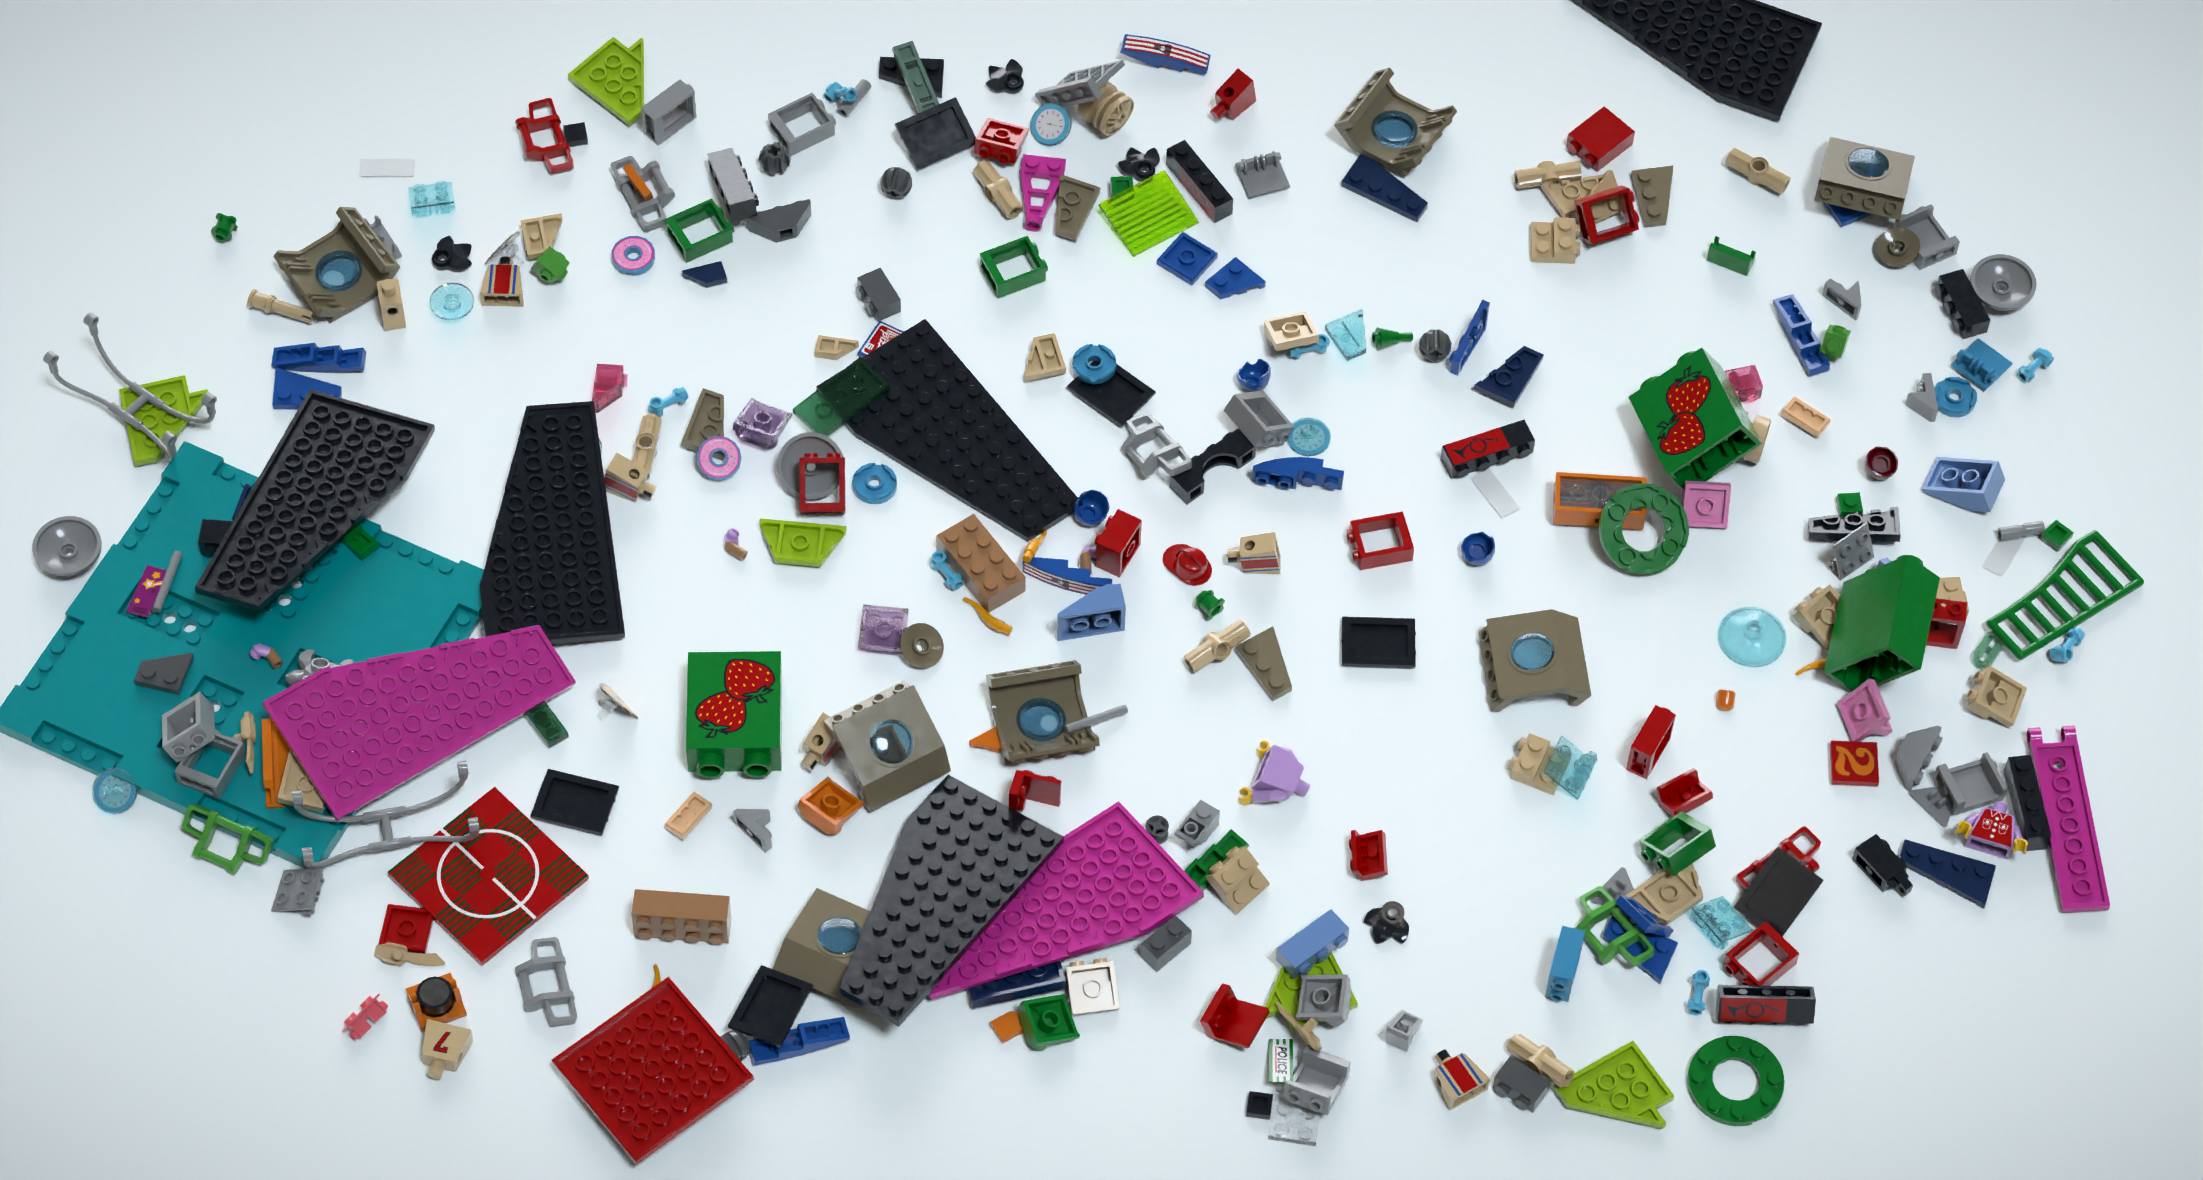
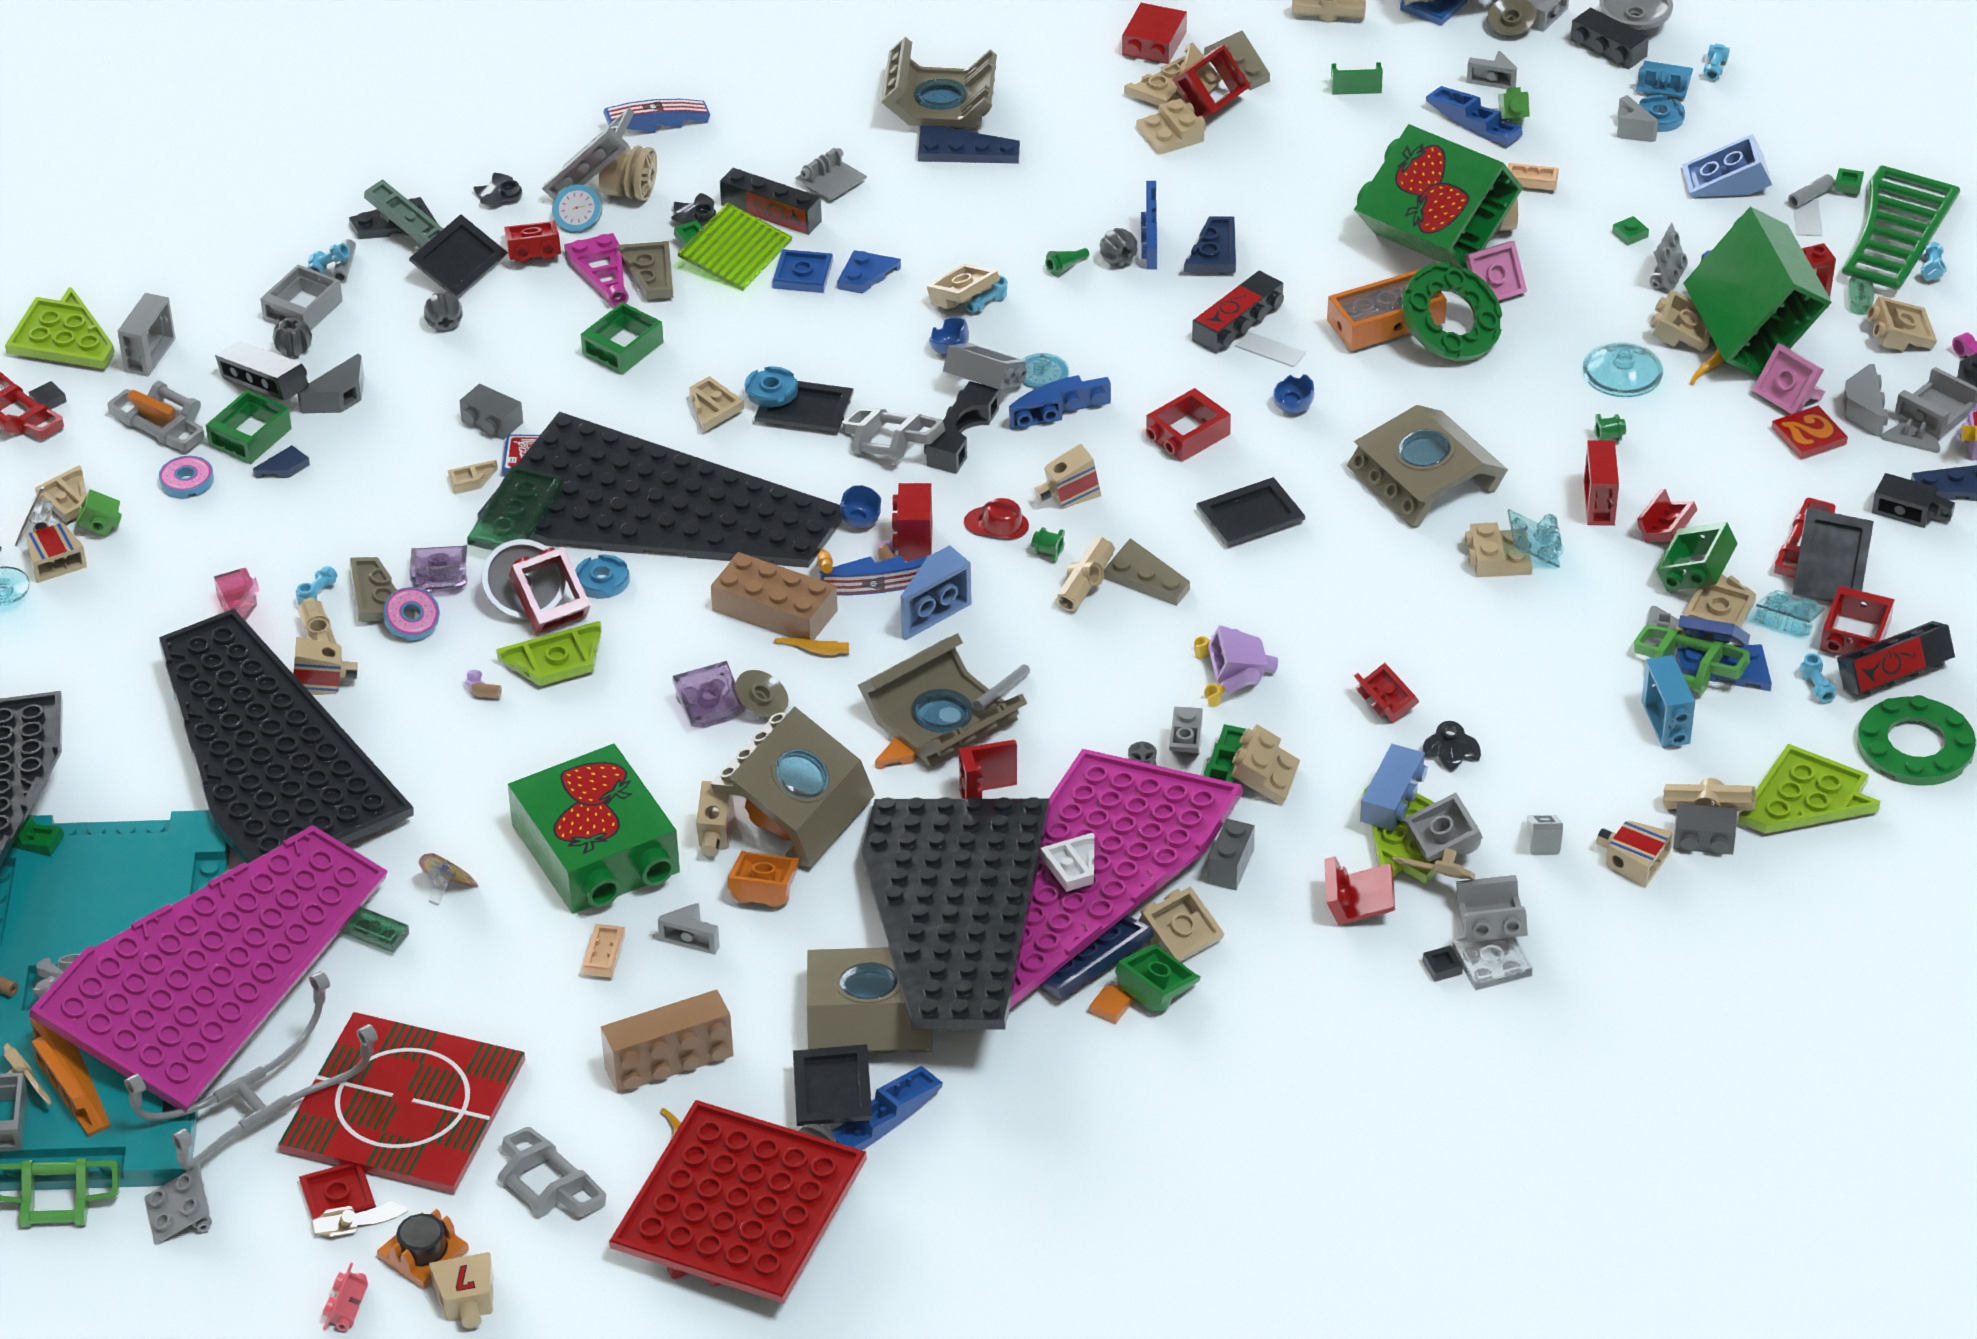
camera: 25 degrees left, 15 degrees down
(296, 779) = (110, 1092): tan wing -> none
(575, 801) = (459, 990): black piece -> none
(939, 564) = (726, 618): medium azure bar -> none
(998, 189) = (558, 281): tan piece -> none
(1044, 900) = (1071, 861): none -> white wing
(1234, 96) = (756, 127): red torso -> none
(1280, 1060) = (1436, 910): sticker -> none
(1348, 334) = (1022, 271): clear light blue wing -> none
(1547, 172) = (1121, 75): tan piece -> none
(1698, 690) = (1609, 427): none -> green brick
(1725, 700) = (1640, 428): orange piece -> none
(1881, 463) = (1635, 184): dark red hair -> none
(1882, 525) = (1642, 249): wing -> none

